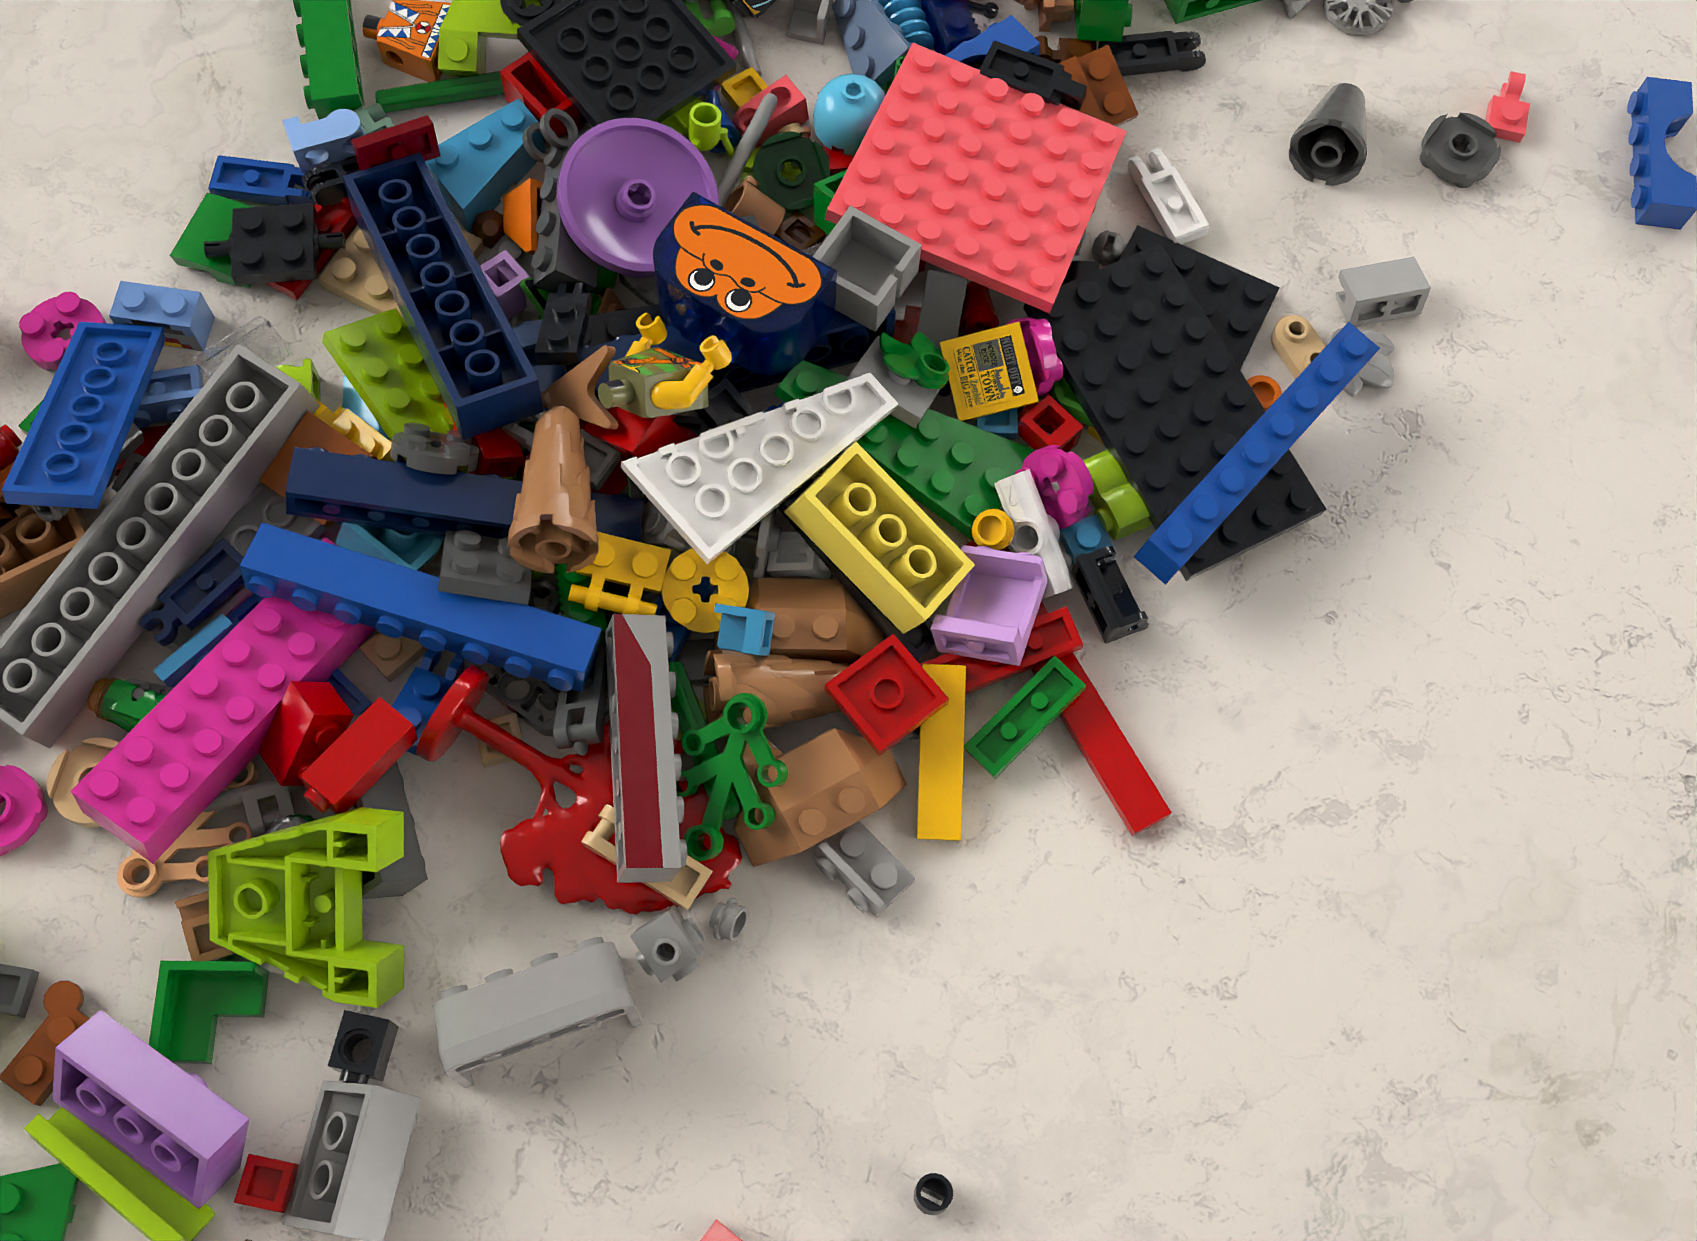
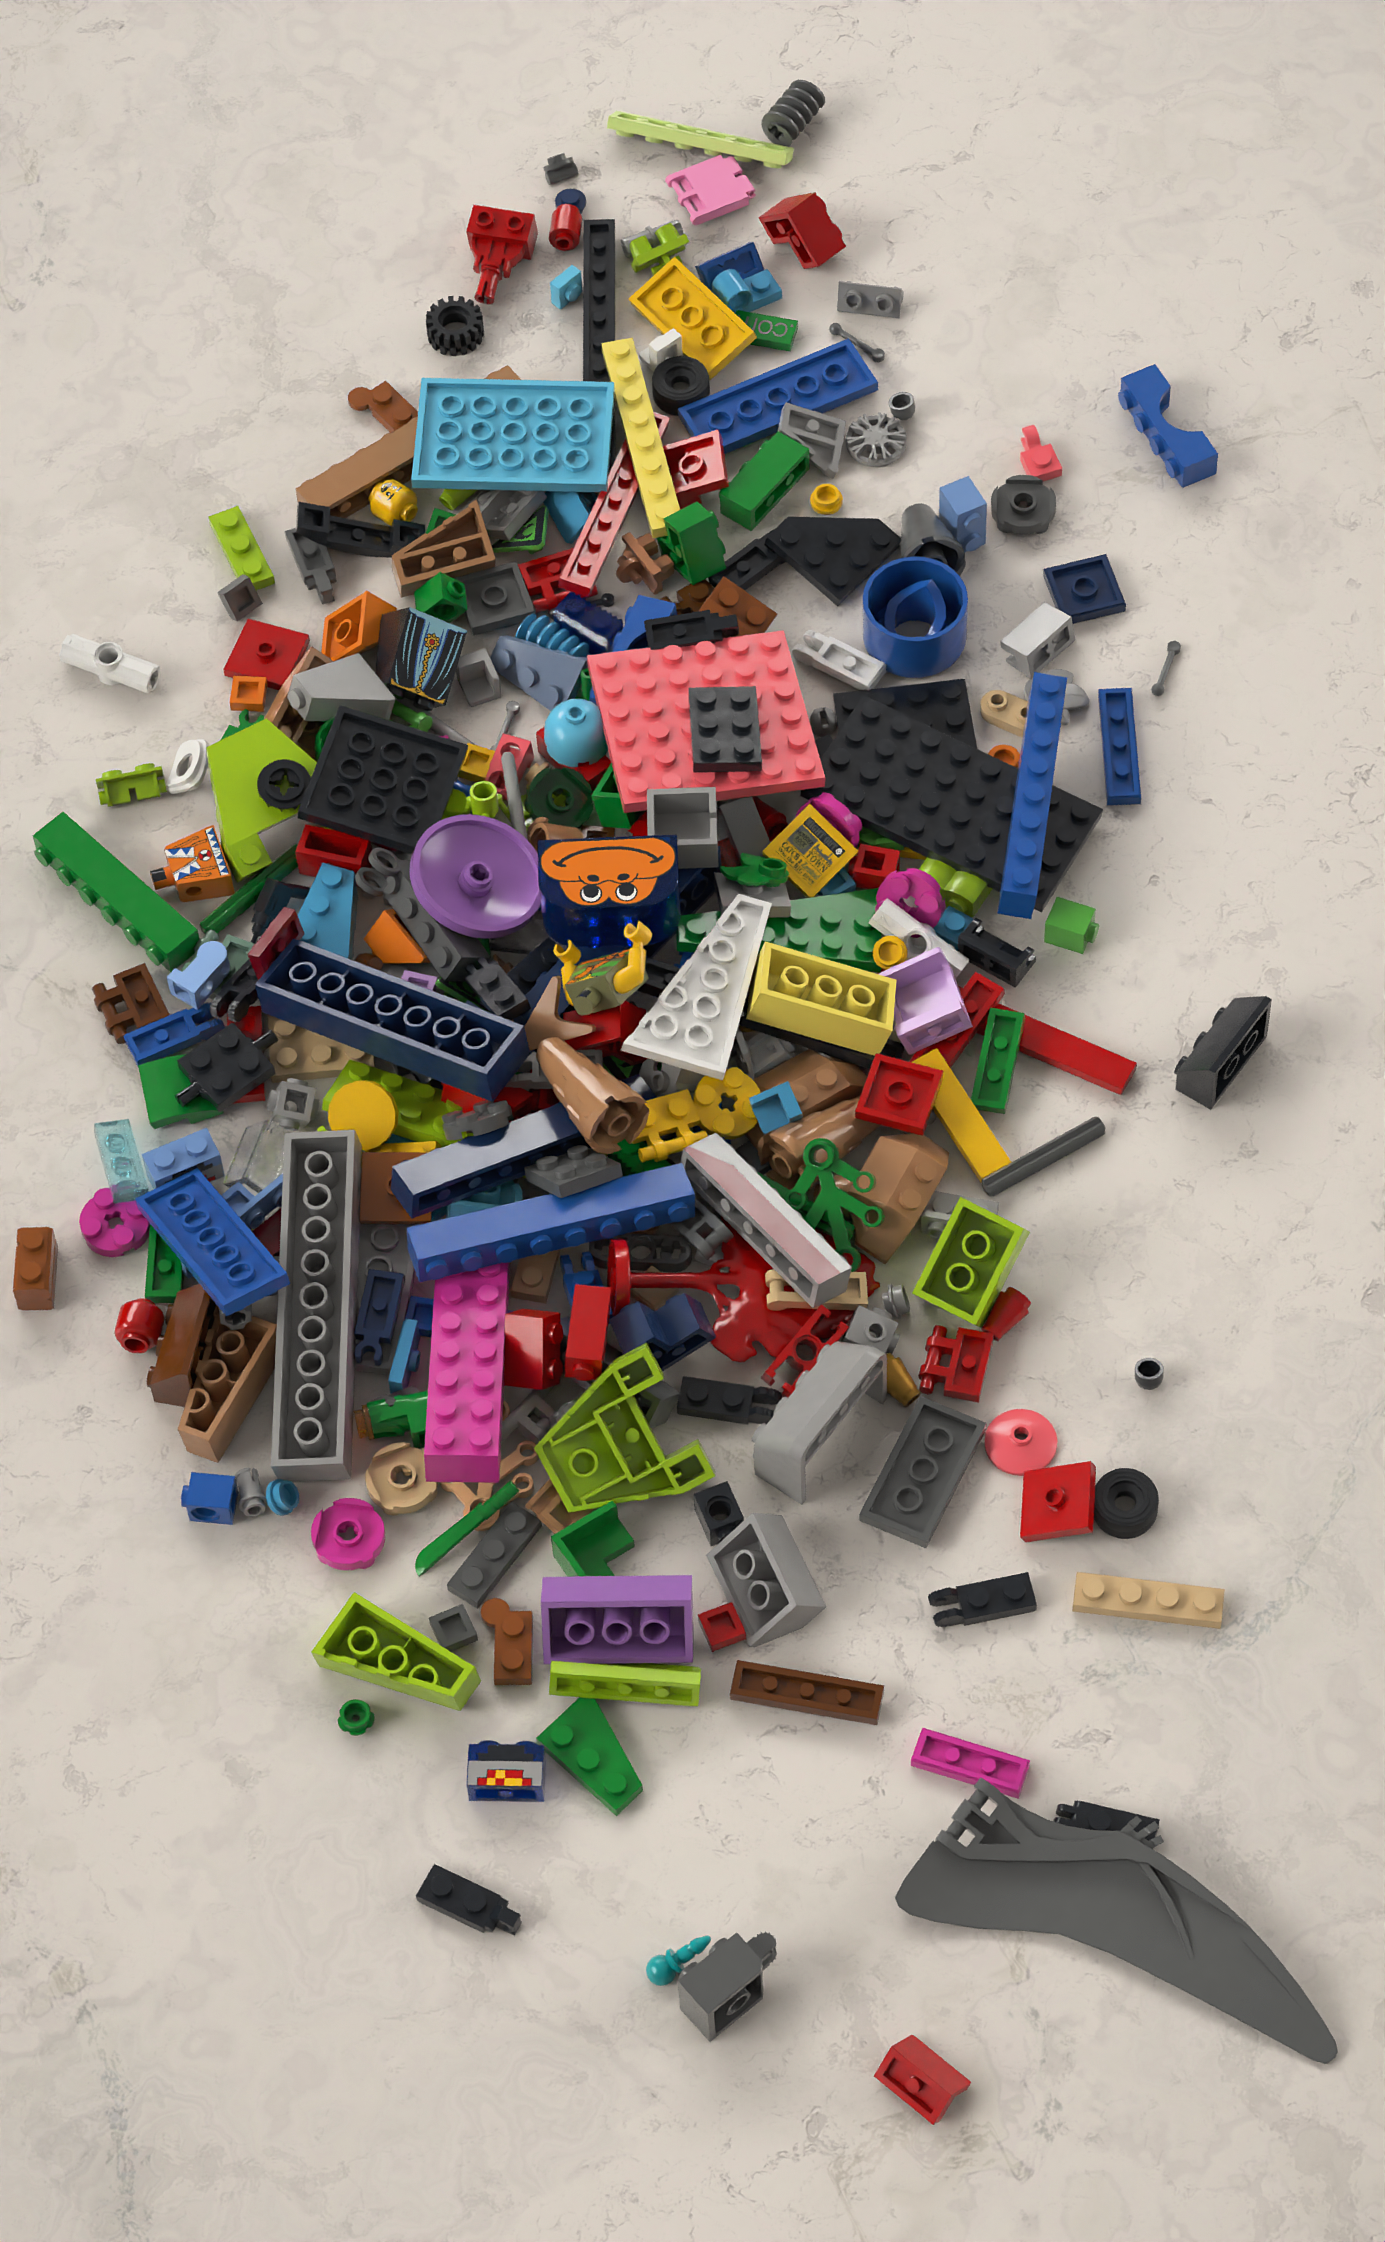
camera: 25 degrees left, 10 degrees down
(96, 882) = (454, 1535): none -> green piece
(114, 931) = (494, 1555): none -> dark grey plate
(118, 260) = (120, 1160): none -> clear light blue plate
(264, 130) = (140, 998): none -> reddish brown plate
(293, 315) = (299, 1093): none -> light grey brick
(346, 372) = (367, 1110): none -> yellow tile
(451, 799) = (669, 1331): none -> dark blue brick
(456, 110) = (271, 901): none -> black piece
(472, 912) = (726, 1401): none -> black hinge
(592, 903) = (803, 1337): none -> red piece
(608, 1145) = (922, 1472): none -> dark grey plate
(660, 1013) = (899, 1382): none -> pearl gold cone
(742, 1202) = (1018, 1455): none -> coral dish
(748, 1046) = (967, 1365): none -> red plate
(824, 61) = (512, 709): none -> light grey hinge
(824, 938) = (971, 1262): none -> lime brick
(831, 1014) = (1007, 1312): none -> red cone
(985, 193) = (724, 729): none -> black plate
(1000, 854) = (1043, 1156): none -> dark grey axle
(1206, 614) = (1070, 925): none -> bright green brick
(1239, 86) = (834, 551): none -> black plate
(1268, 33) = (826, 499): none -> yellow plate
(1274, 859) = (1223, 1049): none -> black slope
(1275, 164) = (915, 592): none -> blue piece
(1390, 452) = (1119, 746): none -> blue tile
(1392, 120) = (964, 513): none -> medium blue brick
(1466, 268) = (1085, 589): none -> dark blue tile
(1516, 383) = (1173, 649): none -> dark grey hinge

